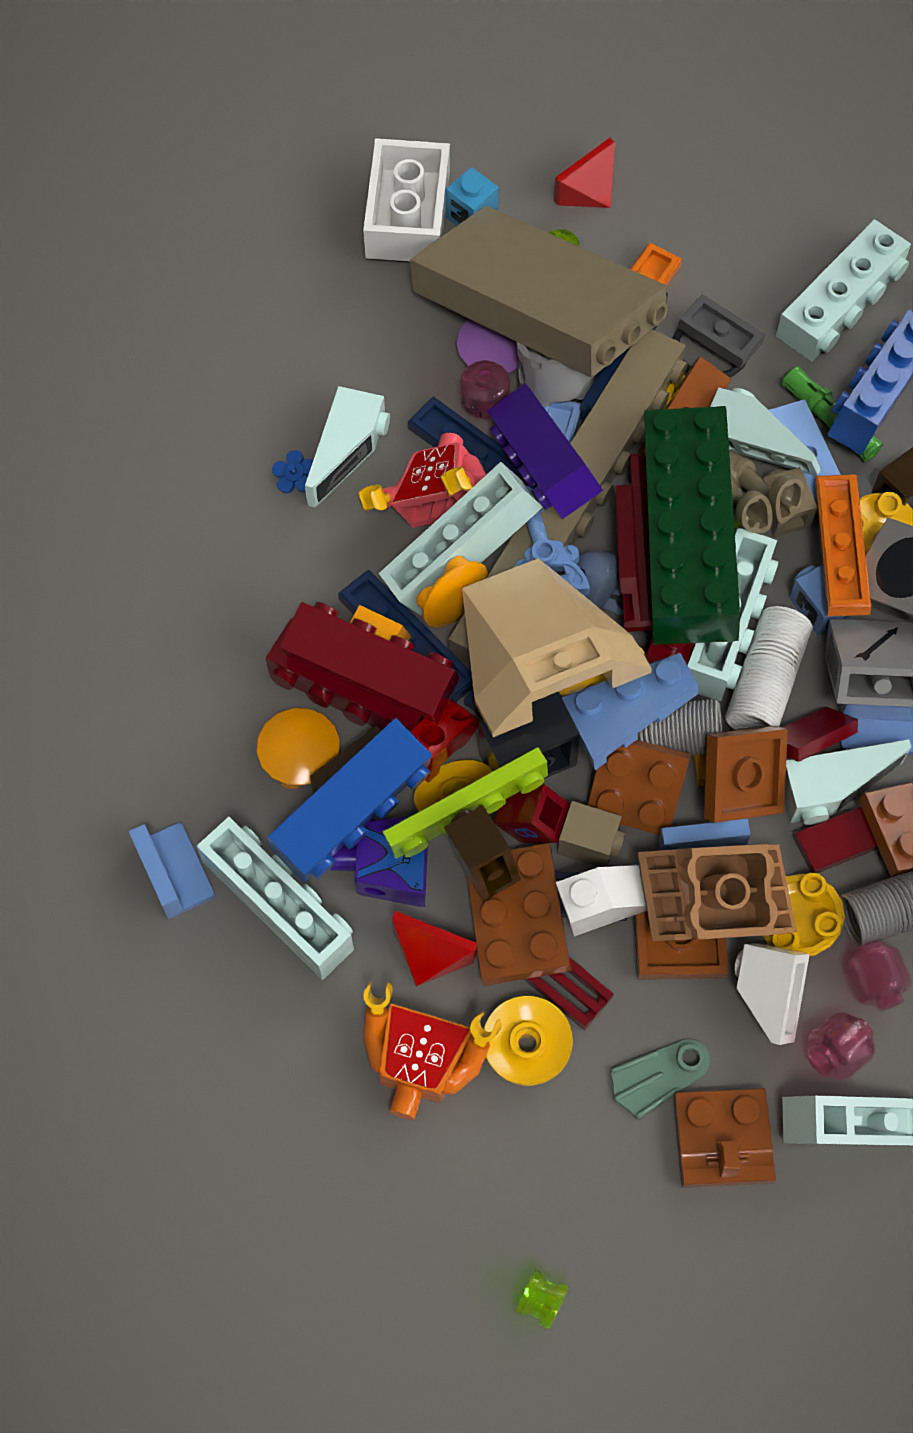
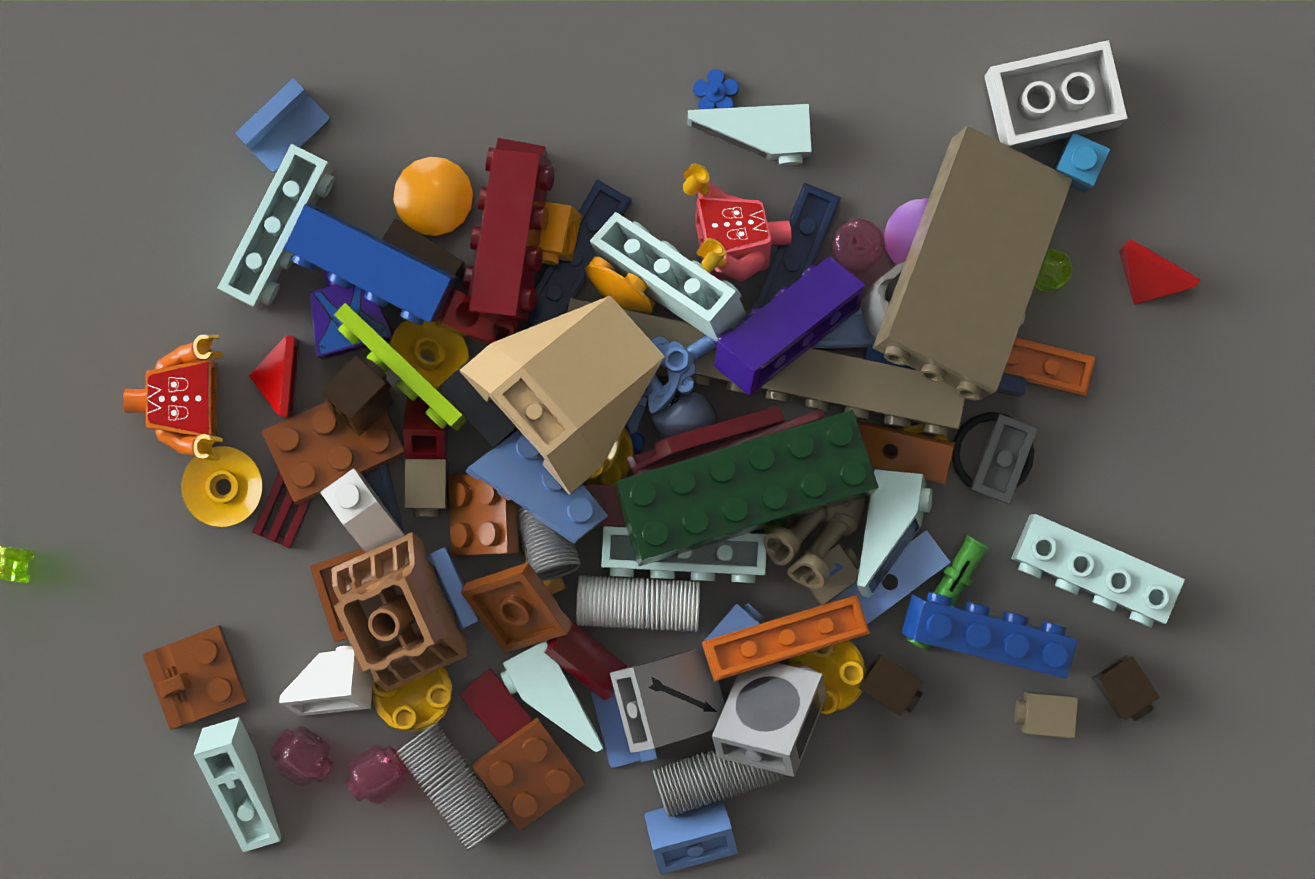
camera: 70 degrees right, 20 degrees up
(657, 1076) = (233, 606): sand green piece -> none

